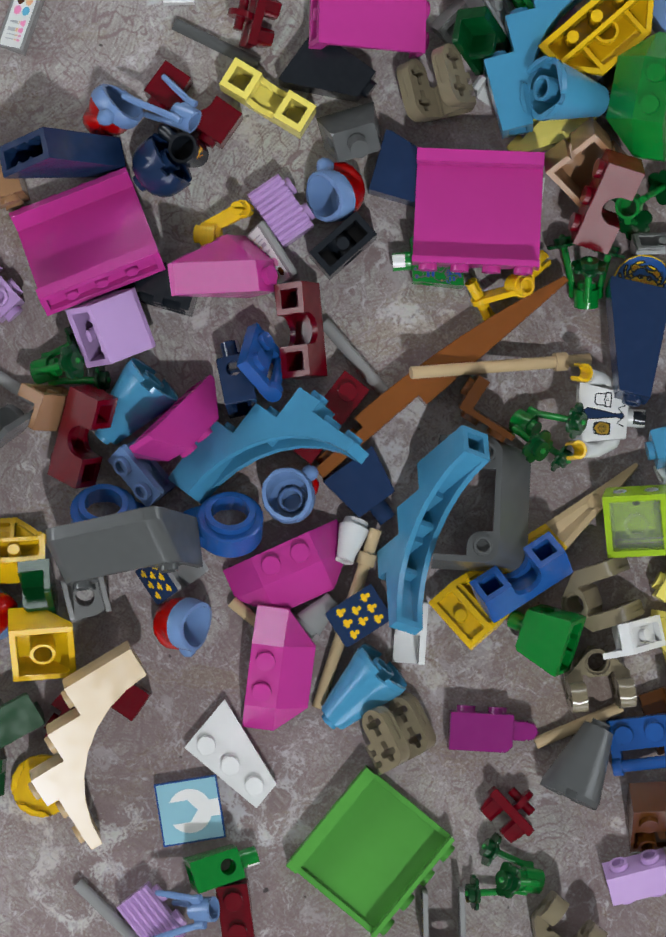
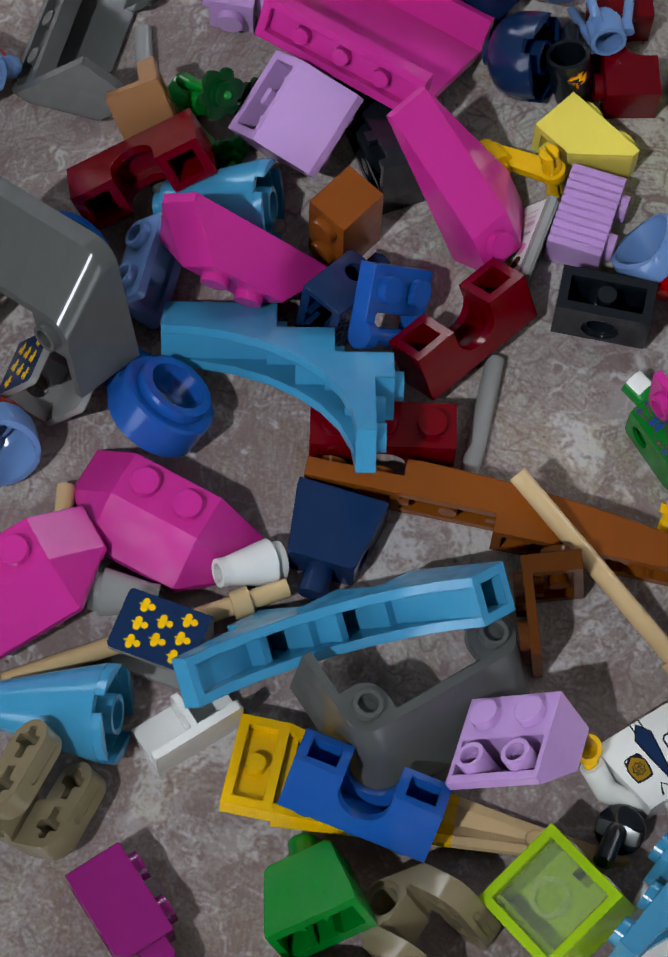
camera: 55 degrees right, 20 degrees down
(191, 348) = (344, 217): none -> dark orange brick
(234, 176) = (586, 138): none -> light yellow slope
(286, 482) = (255, 448): medium blue piece -> none
(539, 443) = (566, 673): plant -> none
(554, 486) = (517, 741): none -> lavender slope
(622, 460) = (619, 832): none -> black plate

